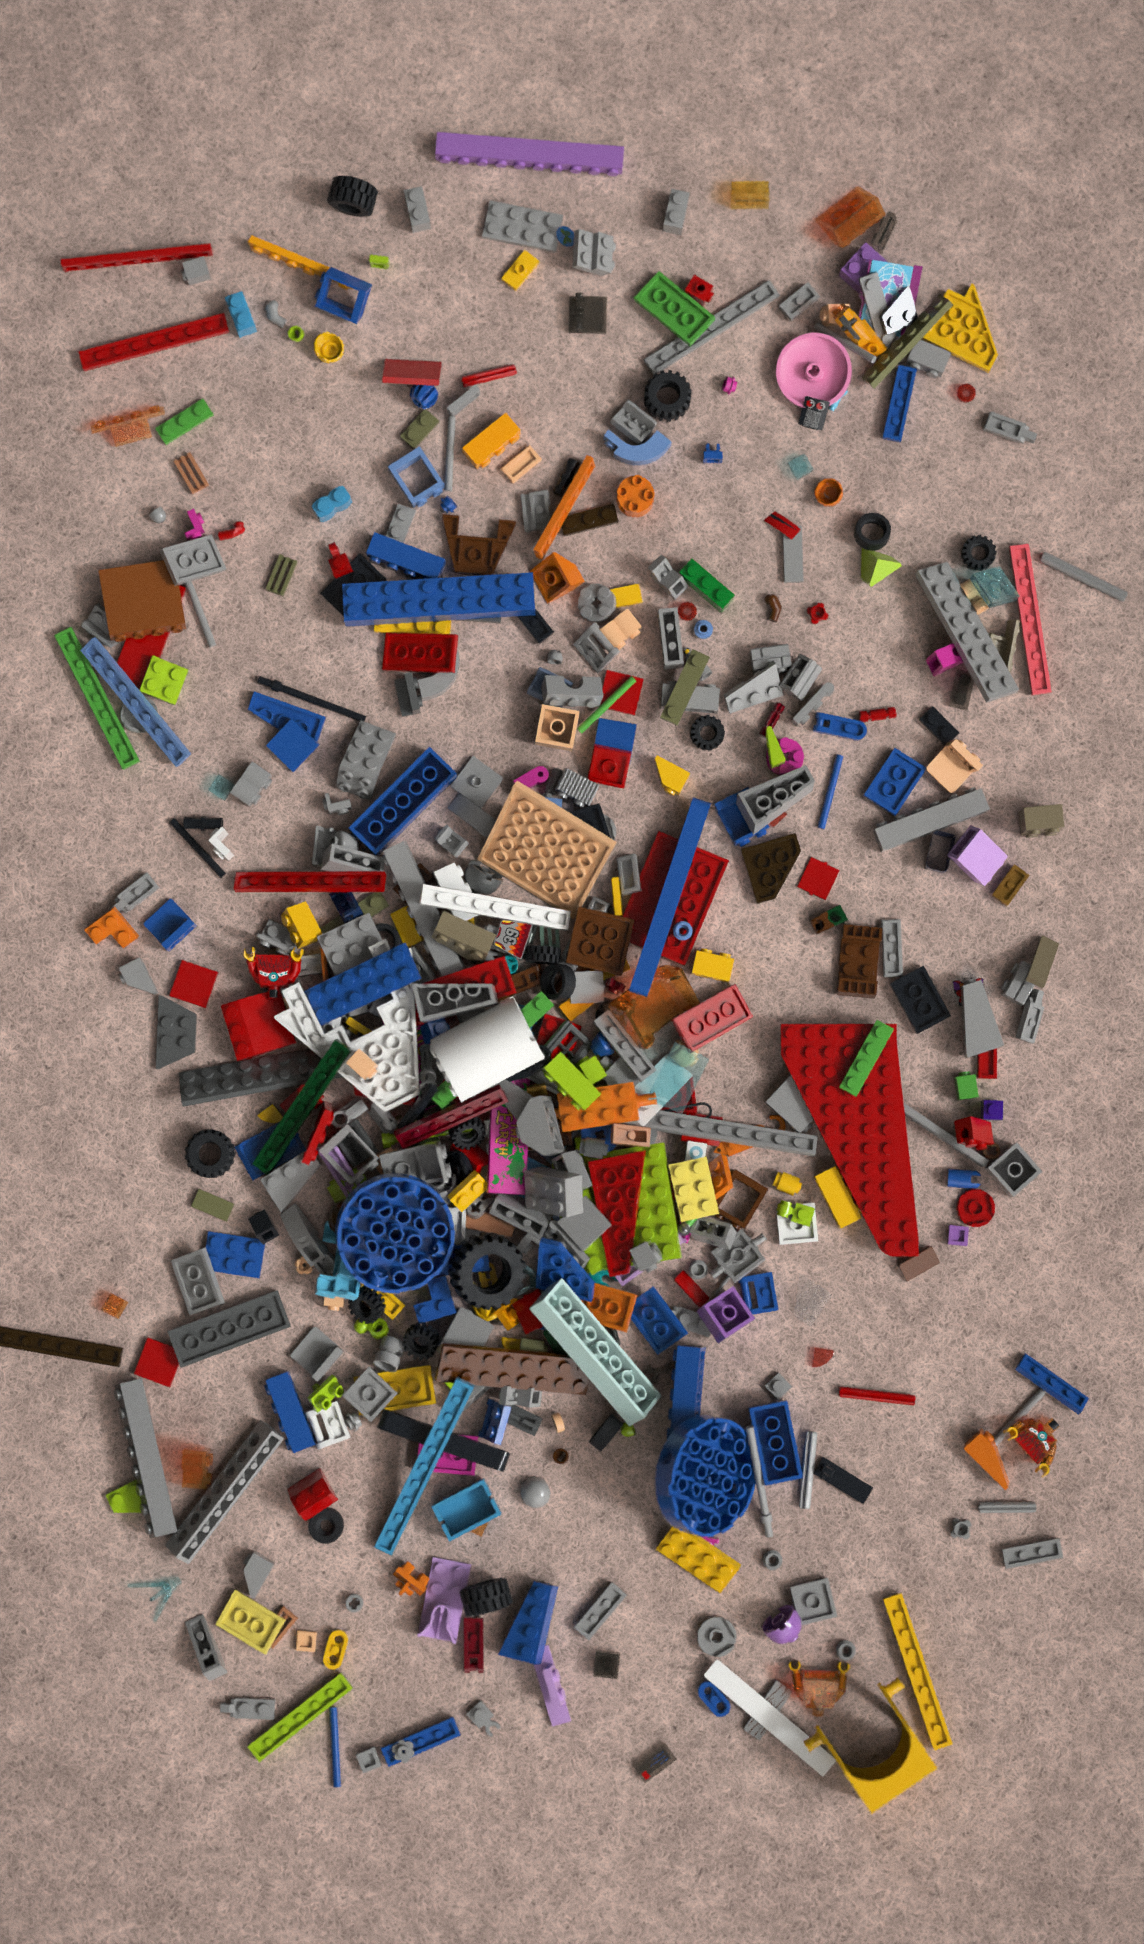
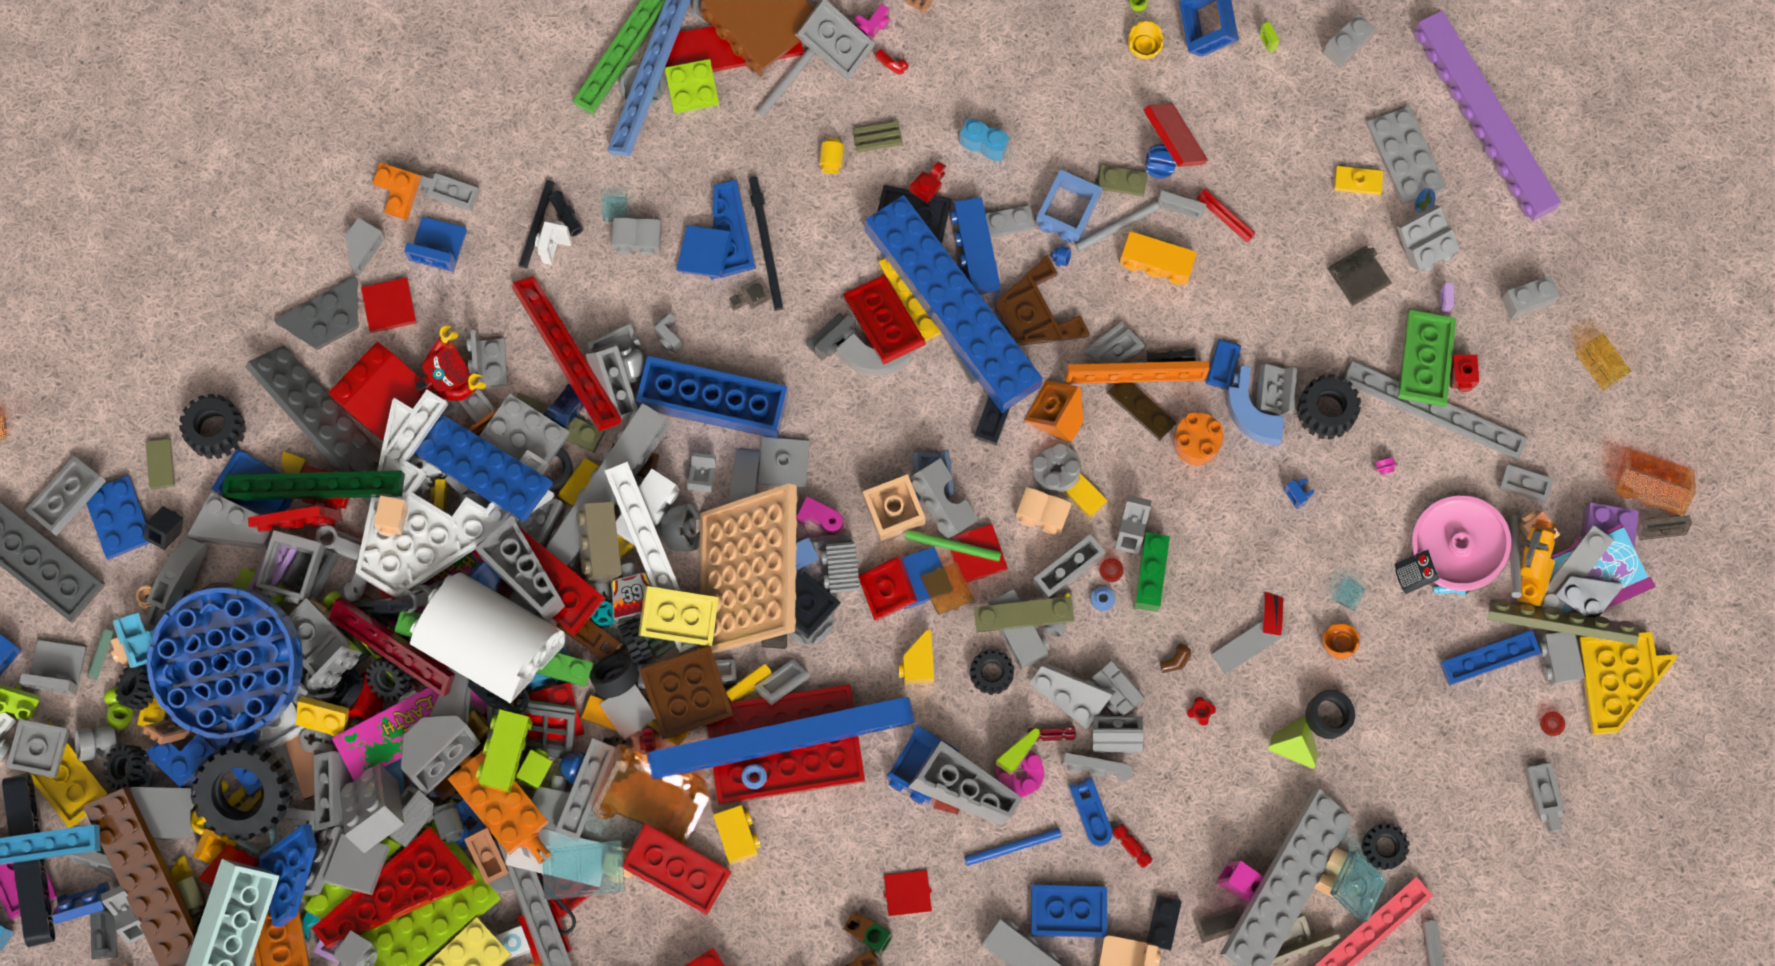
camera: 60 degrees right, 10 degrees down
(276, 615) = (831, 156): none -> yellow brick
(301, 925) = (515, 372): yellow brick -> none
(327, 1318) = (100, 654): none -> sand green tile
(343, 729) = (753, 294): none -> clear smoke plate
(364, 760) = (734, 330): light grey bracket -> none
(416, 1298) = (167, 731): none -> nougat tile
(521, 464) = (1154, 304): light nougat tile -> none
(546, 915) = (678, 616): none -> light yellow plate
(554, 655) = (970, 459): light grey hinge -> none
(592, 445) = (1223, 364): none -> blue tile
(592, 650) = (1002, 496): light grey plate -> none
(634, 727) = (947, 588): none -> clear orange piece
(641, 267) = (1447, 297): none -> lavender tile
(770, 865) = (888, 830): dark brown plate -> none

